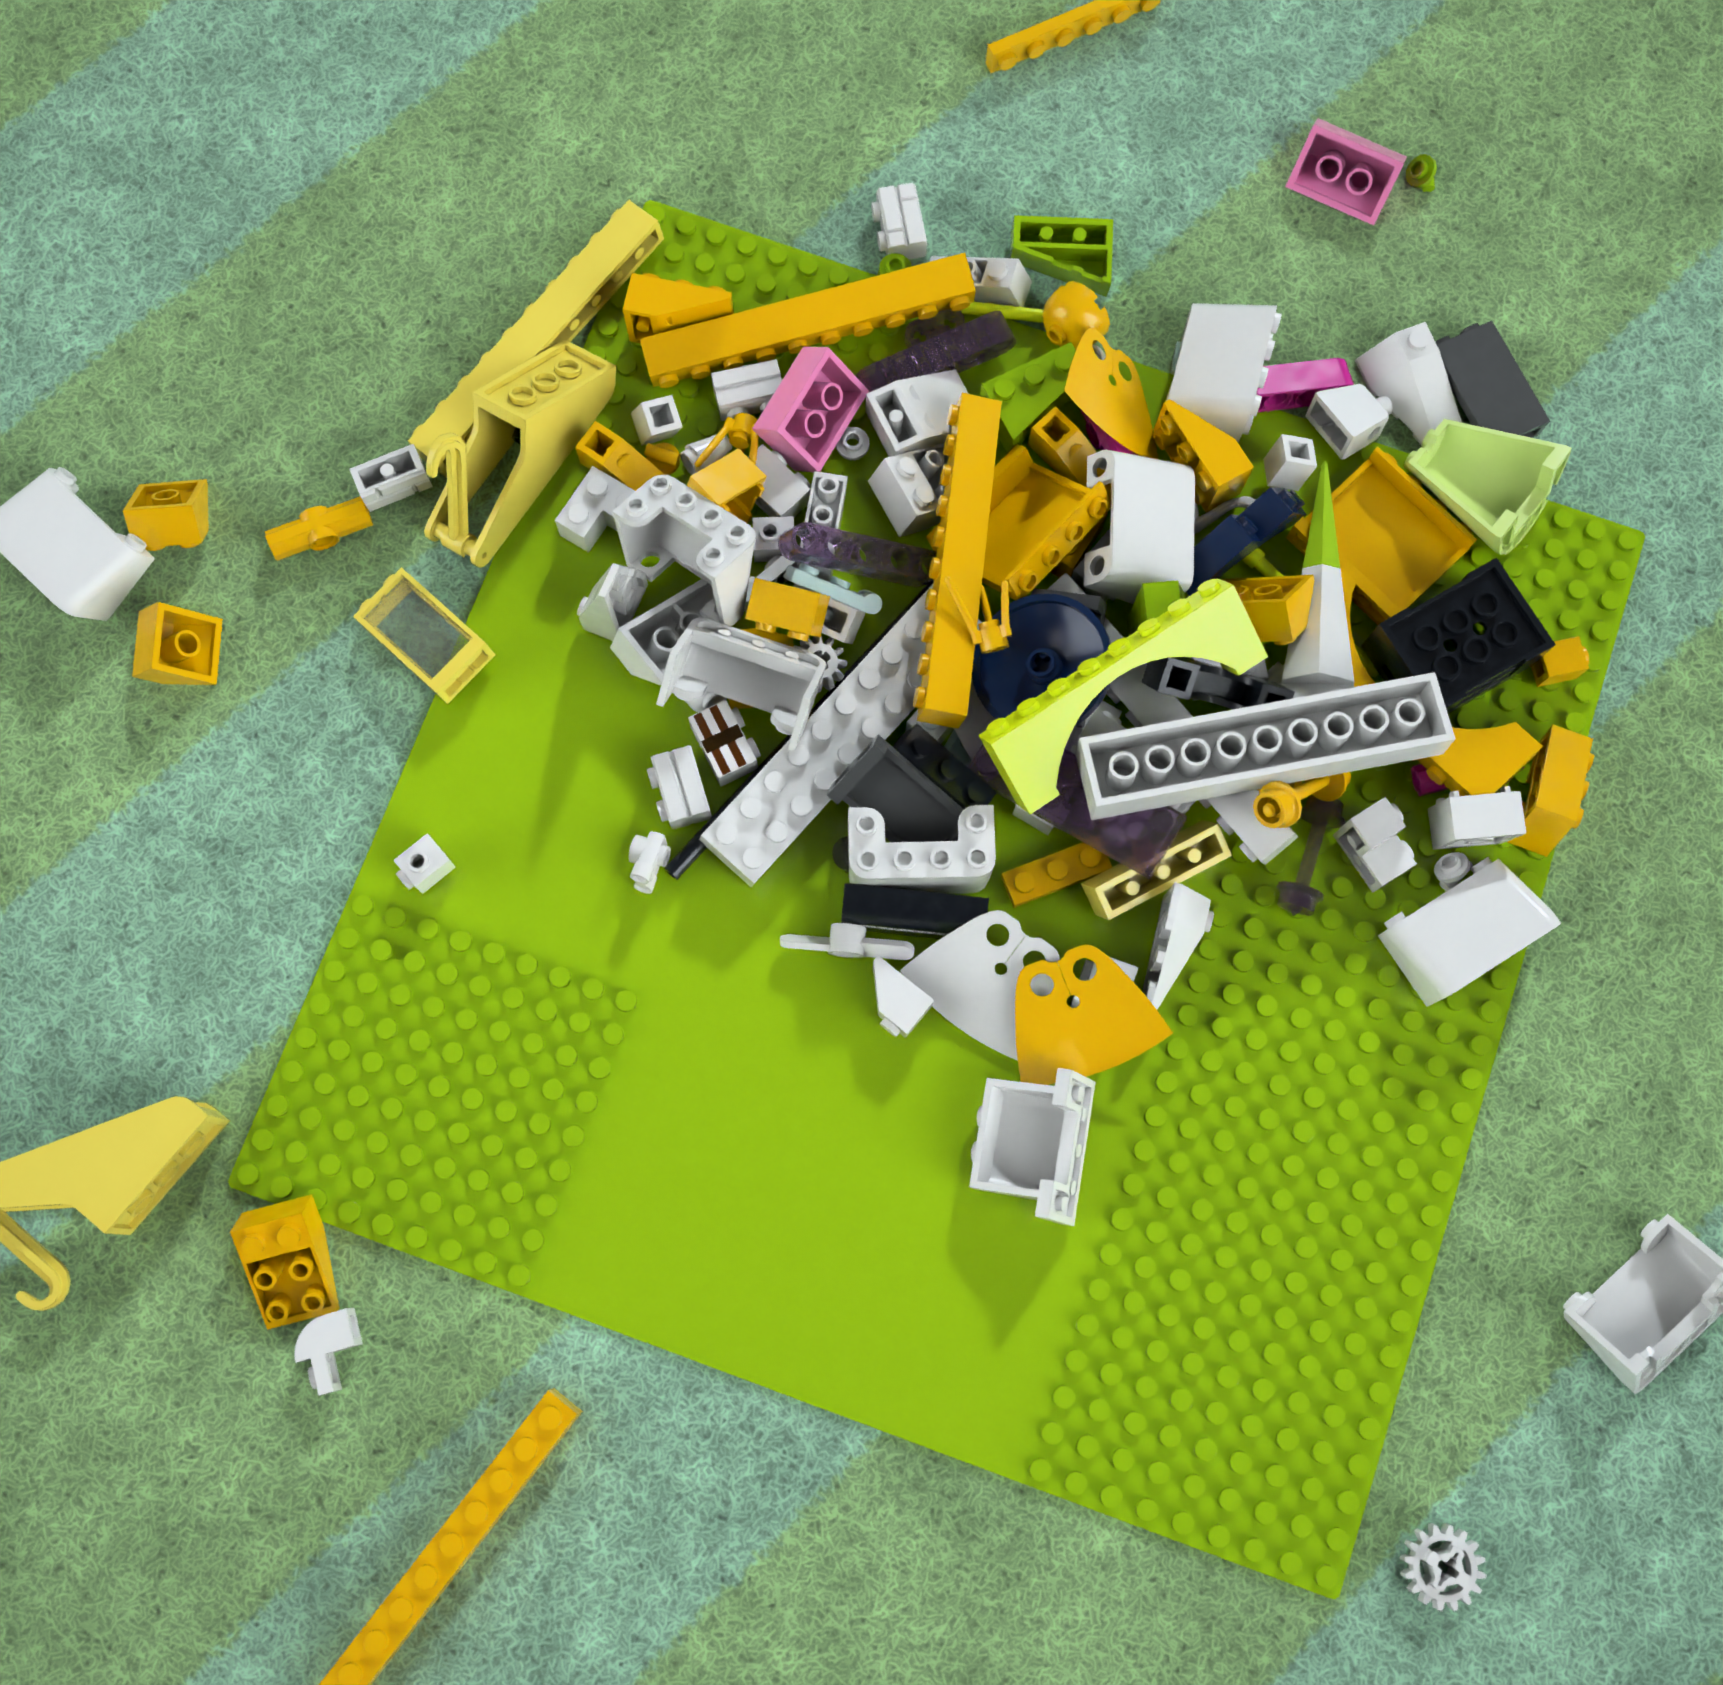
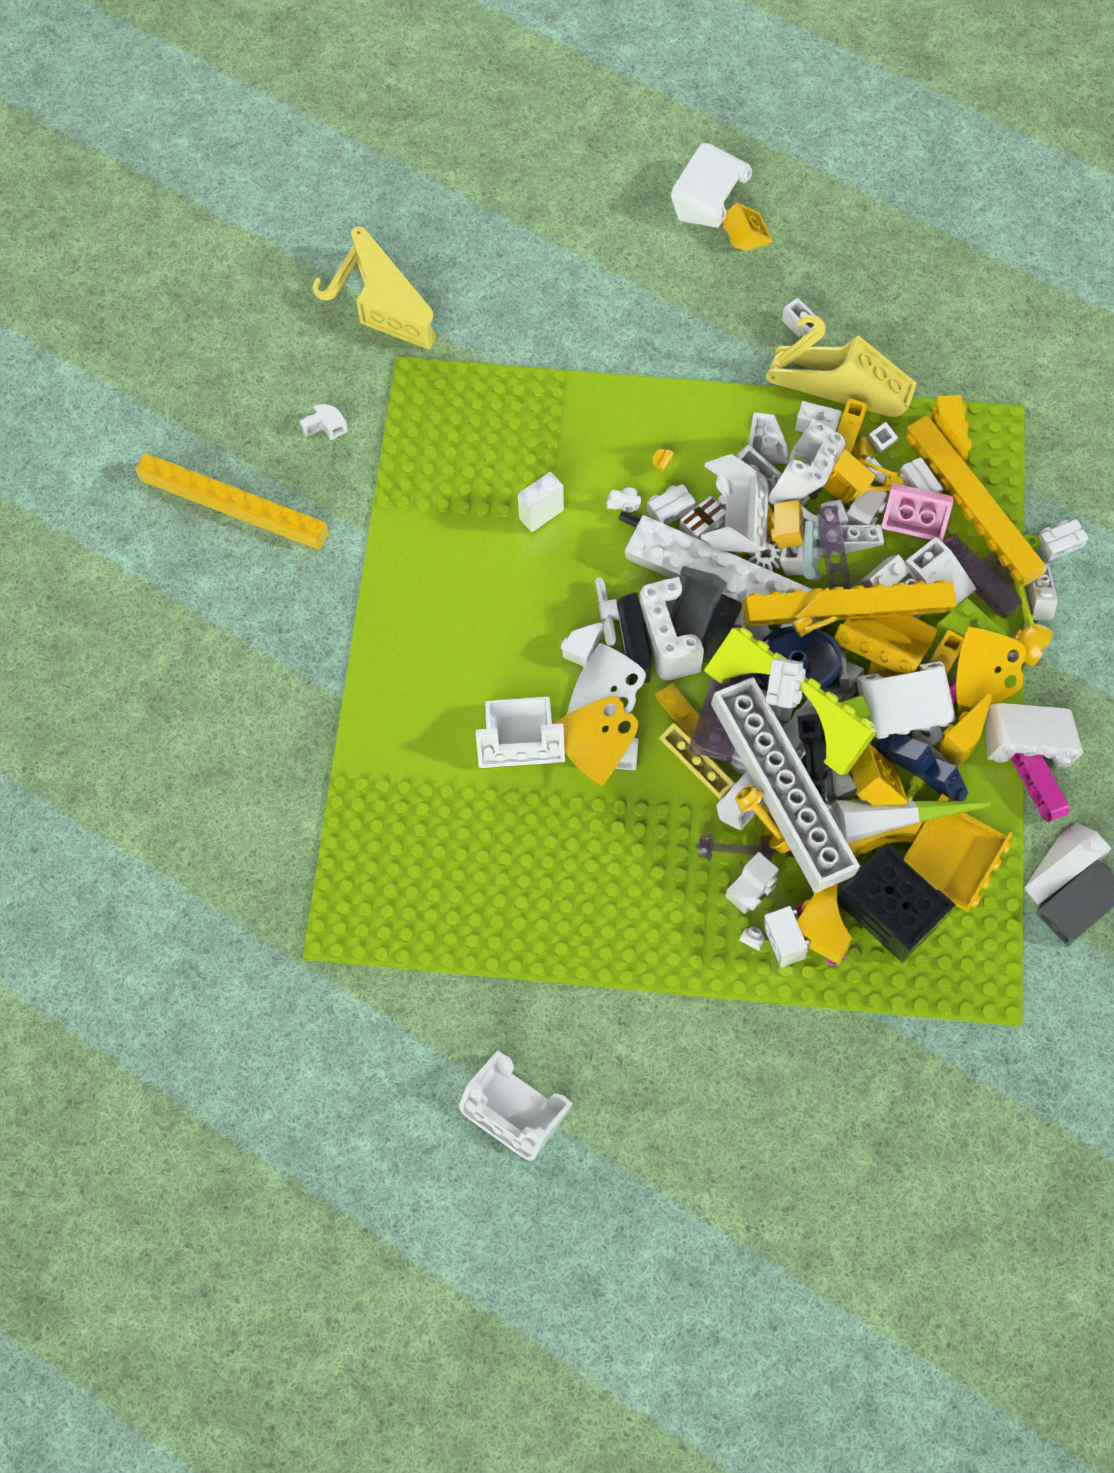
camera: 80 degrees right, 10 degrees down
(177, 646) = (674, 253): yellow slope -> none
(287, 1261) = (364, 391): yellow slope -> none
(318, 528) = (762, 297): yellow piece -> none
(423, 864) = (589, 394): white brick -> none
(424, 635) = (717, 362): window -> none
(555, 316) = (931, 375): light yellow brick -> none
(587, 777) = (661, 458): none -> yellow plate
(622, 999) = (540, 502): none -> white brick
(853, 452) = (908, 550): white plate -> none
(1066, 248) = (1081, 634): lime wedge -> none
(1116, 690) = (785, 683): none -> white brick
(1178, 931) = (663, 783): white wedge -> none
(1290, 462) = (983, 785): white brick -> none
(1349, 417) = (1030, 820): white torso -> none
(1434, 1579) = (331, 1019): white gear -> none
(1466, 931) = (716, 948): white windscreen -> none
(1489, 478) = (1013, 908): yellowish green cone -> none
(1555, 789) = (822, 984): yellow wedge -> none
(1562, 663) = (909, 976): yellow brick -> none

